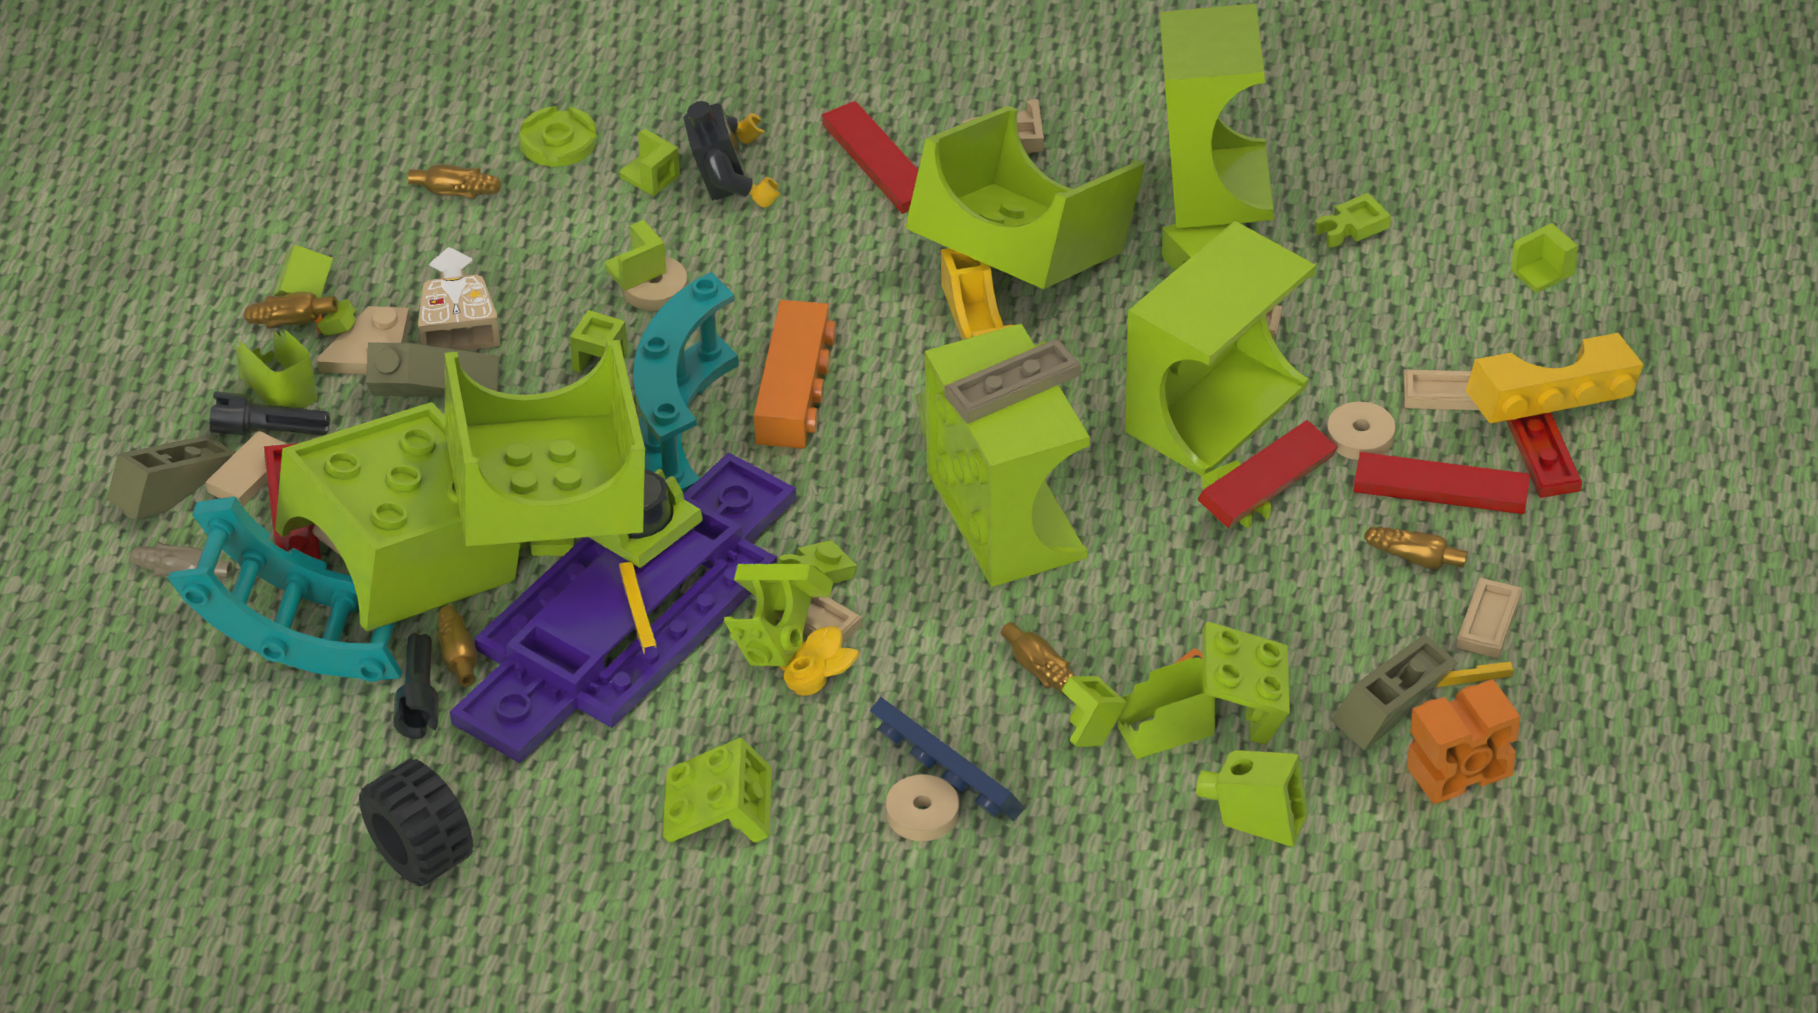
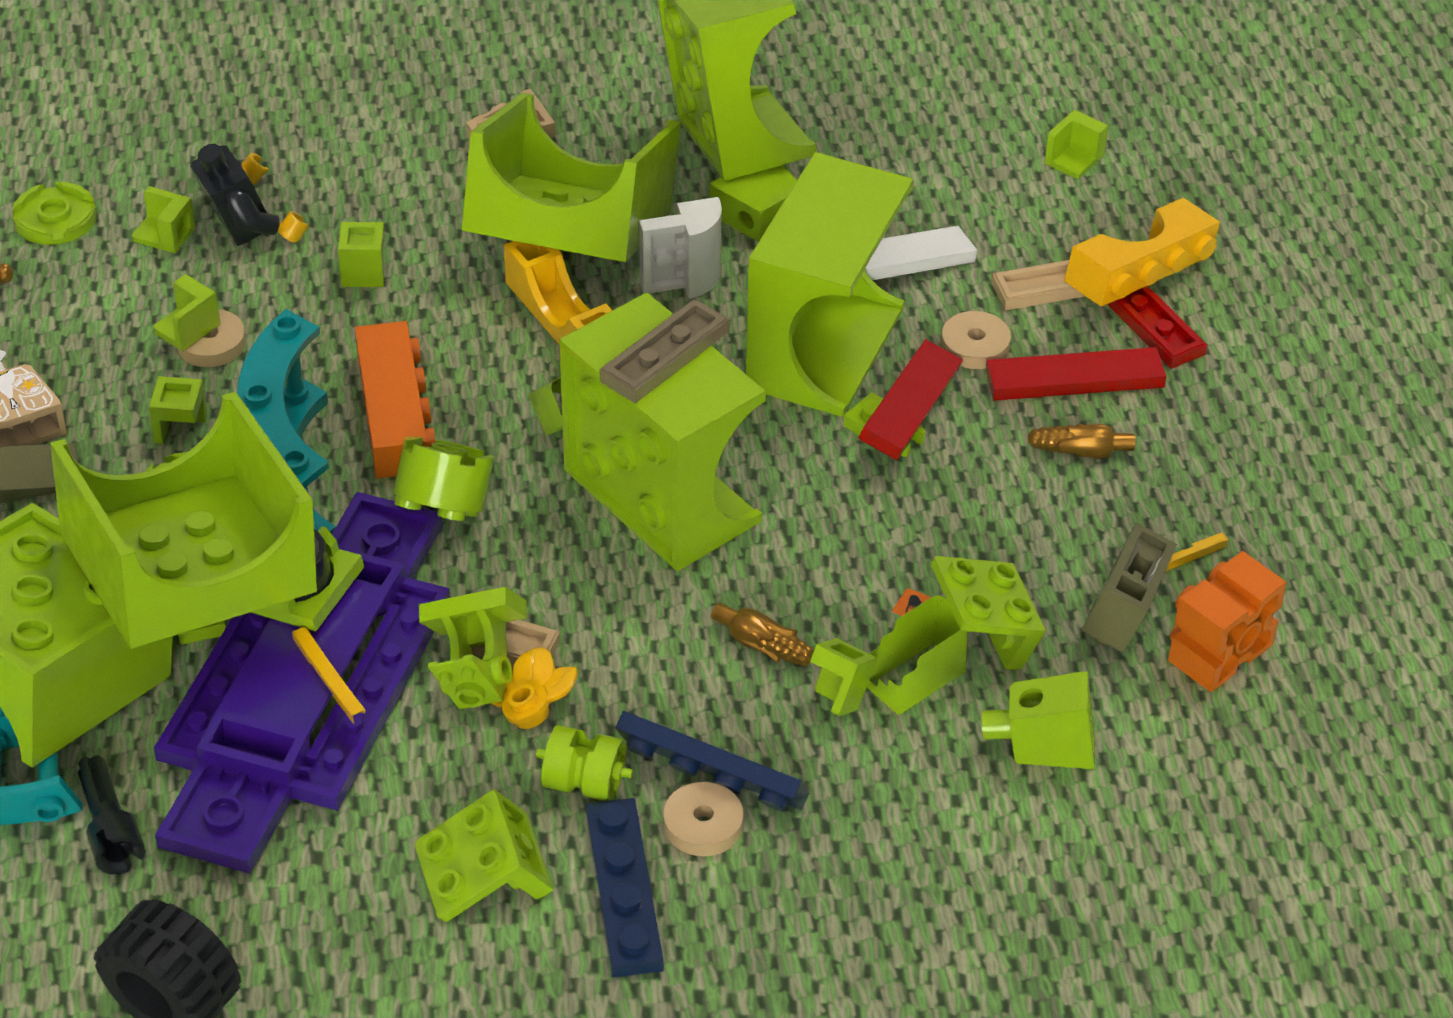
camera: 20 degrees left, 0 degrees up
(457, 645) = (135, 760): pearl gold piece -> none
(804, 455) = (443, 477): none -> lime brick
(813, 231) = (361, 254): none -> lime panel
(826, 558) = (497, 575): lime plate -> none
(827, 732) = (583, 763): none -> lime wheel
(829, 849) = (624, 888): none -> dark blue plate
(873, 152) = (393, 172): red tile -> none
(1108, 284) = (682, 249): none -> white brick
(1334, 334) = (920, 252): none -> white tile
(1356, 218) = (883, 141): lime plate -> none
(1489, 618) = (1180, 494): tan tile -> none

